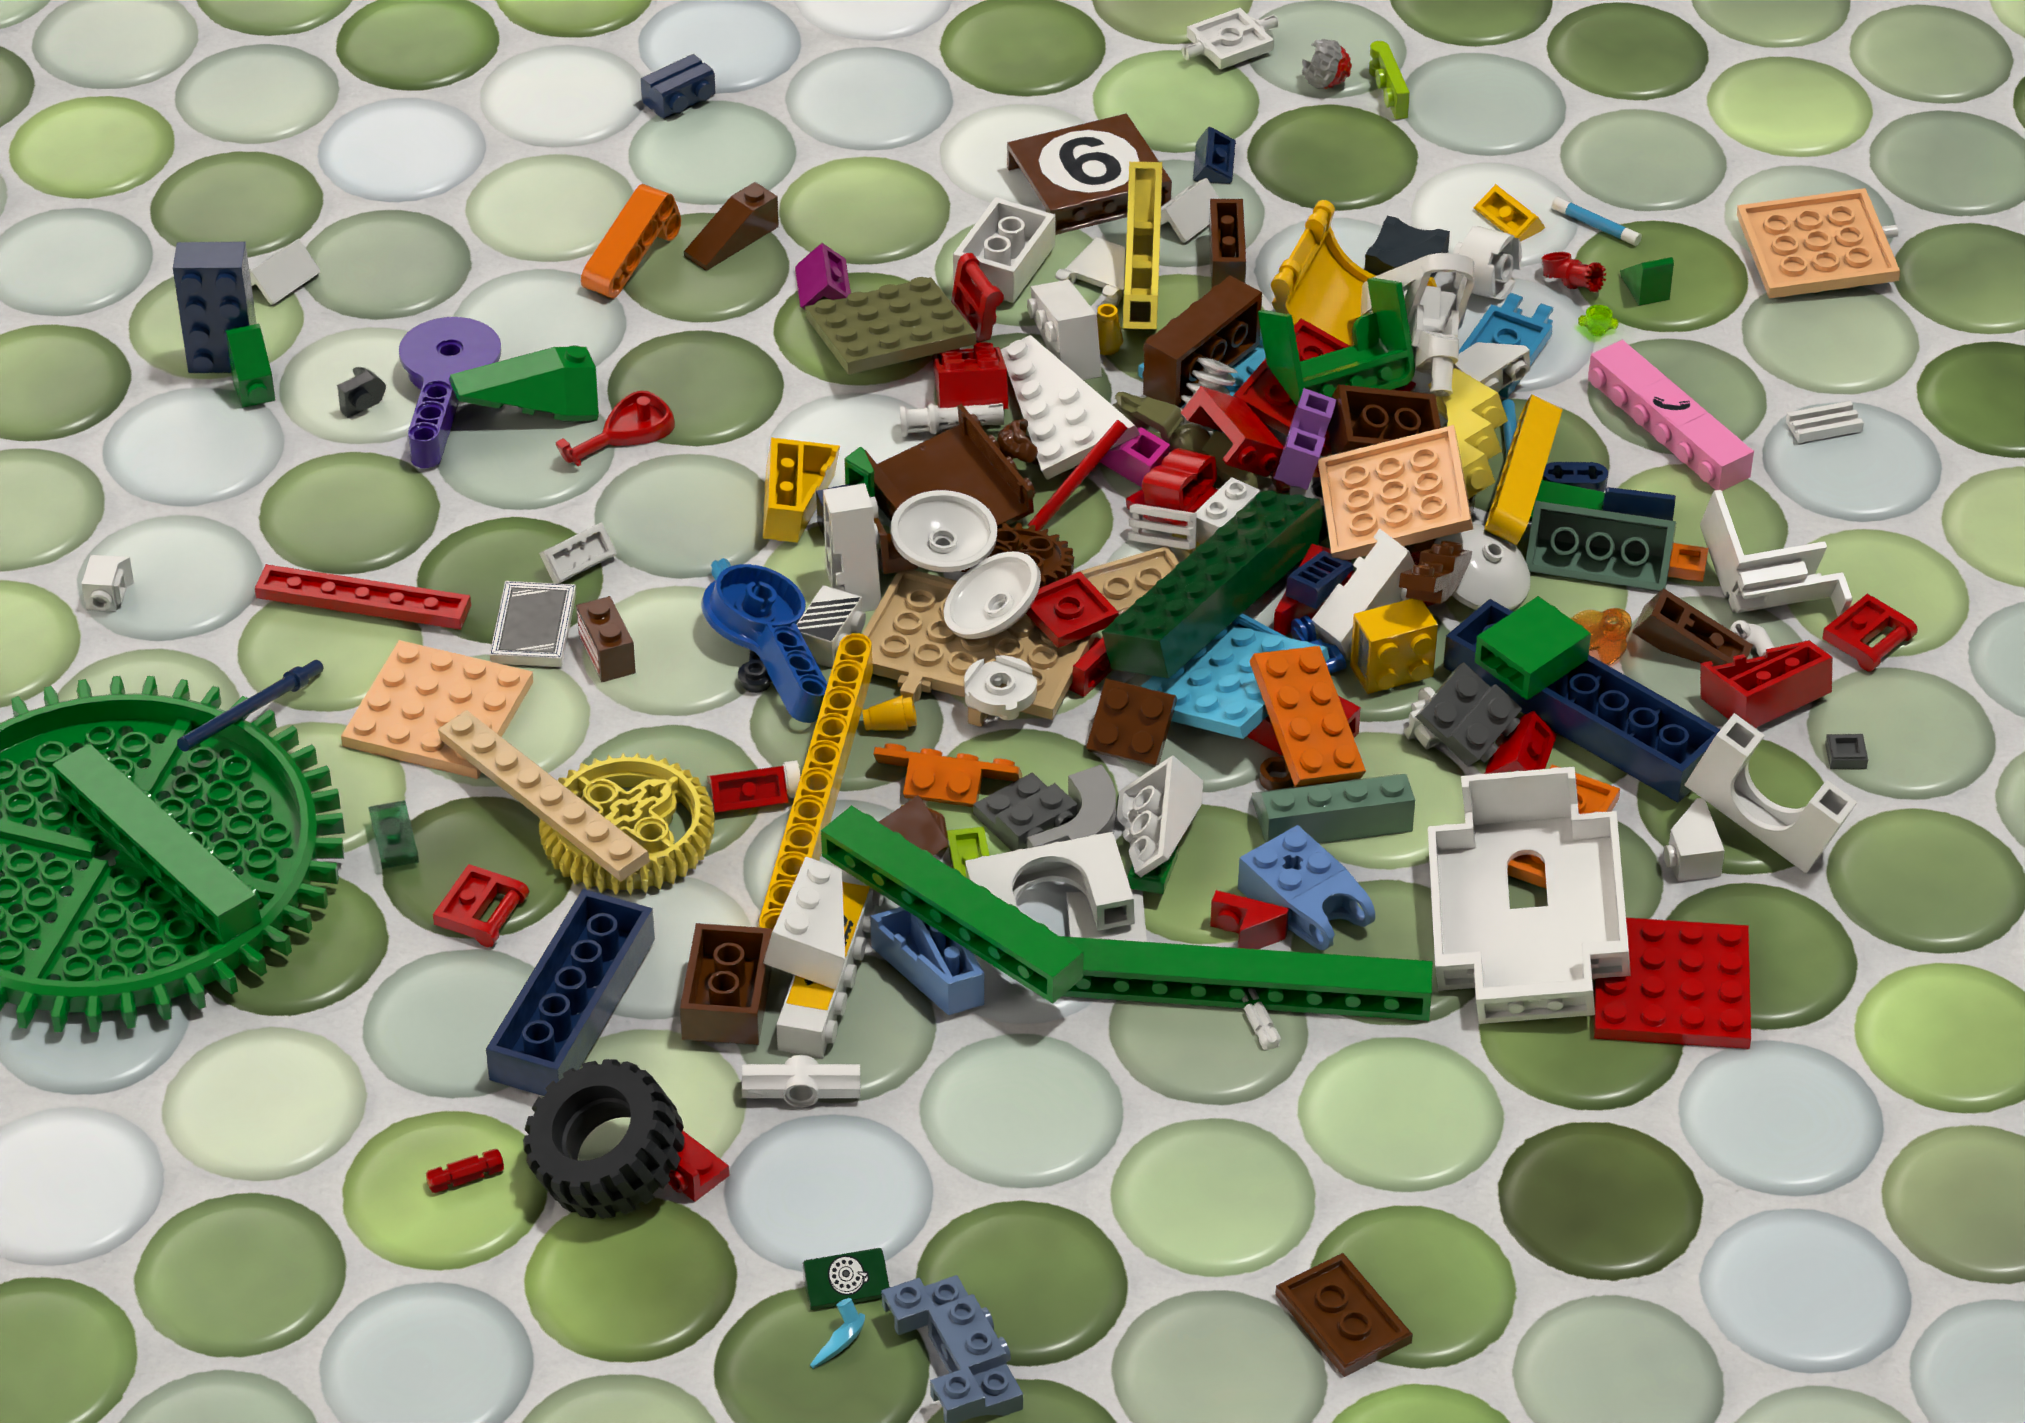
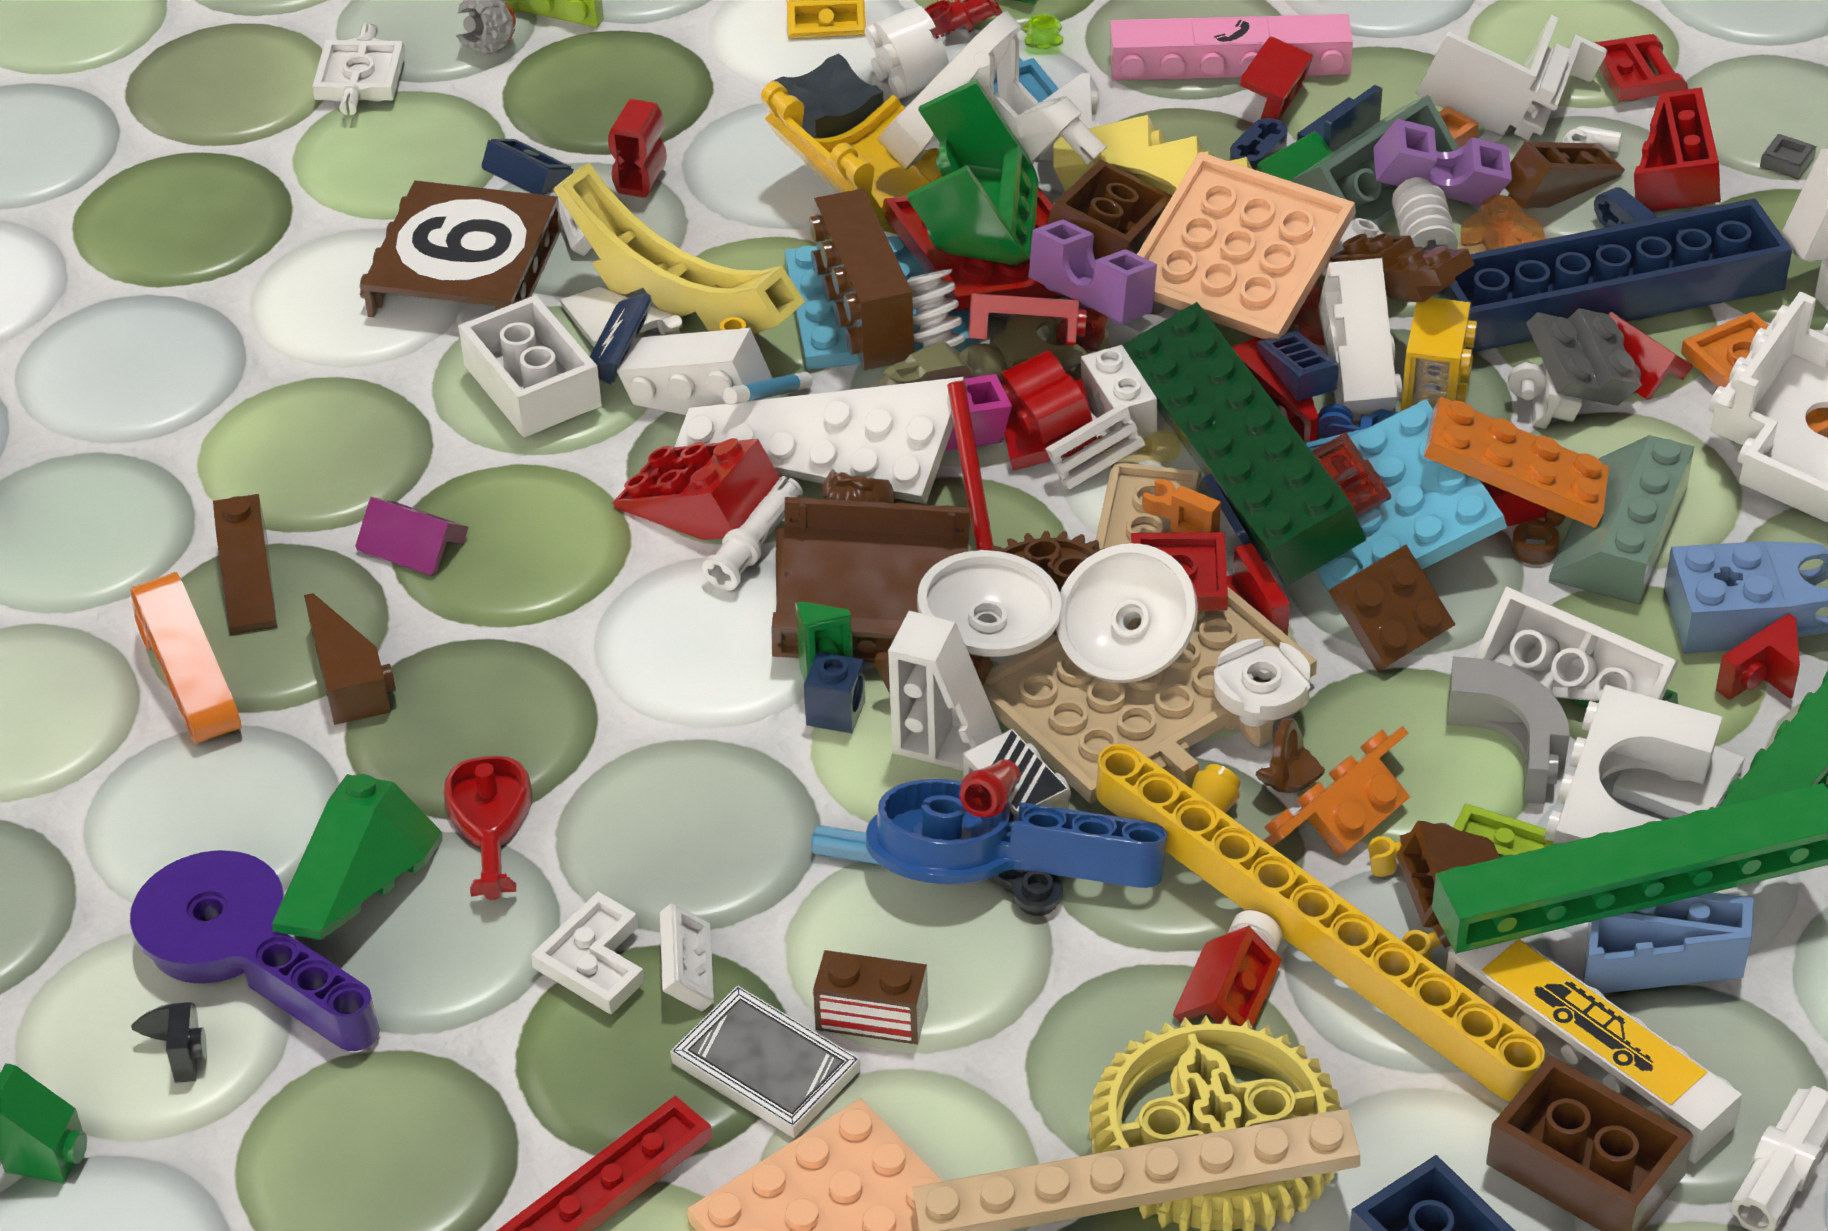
camera: 55 degrees left, 0 degrees up
(547, 510) = (583, 954): none -> white plate
(685, 309) = (349, 666): none -> reddish brown slope
(785, 600) = (989, 788): none -> red cone
(791, 482) = (760, 709): yellow wedge -> none
(811, 926) = (1586, 1009): white wedge -> none
(890, 325) = (556, 510): olive plate -> none
(957, 742) = (1291, 765): none -> reddish brown piece
(978, 301) = (588, 432): red plate -> none
(1025, 810) = (1458, 761): dark grey plate -> none
(1074, 271) = (619, 335): none -> dark blue slope
(1077, 358) = (767, 388): none -> bar
(1134, 583) = (1184, 507): none -> orange plate
(1224, 646) = (1352, 474): none -> clear red slope
(1227, 240) = (696, 206): reddish brown brick -> none
(1258, 184) = (637, 148): none -> red brick
(1523, 469) = (1233, 144): yellow beam -> none
(1532, 647) = (1554, 257): green brick -> none
(1559, 584) = (1424, 214): none -> white piece
(1597, 547) = (1463, 174): none -> medium lavender arch
(1647, 450) = (1277, 75): none -> red panel
(1675, 682) = (1619, 208): none -> dark blue beam

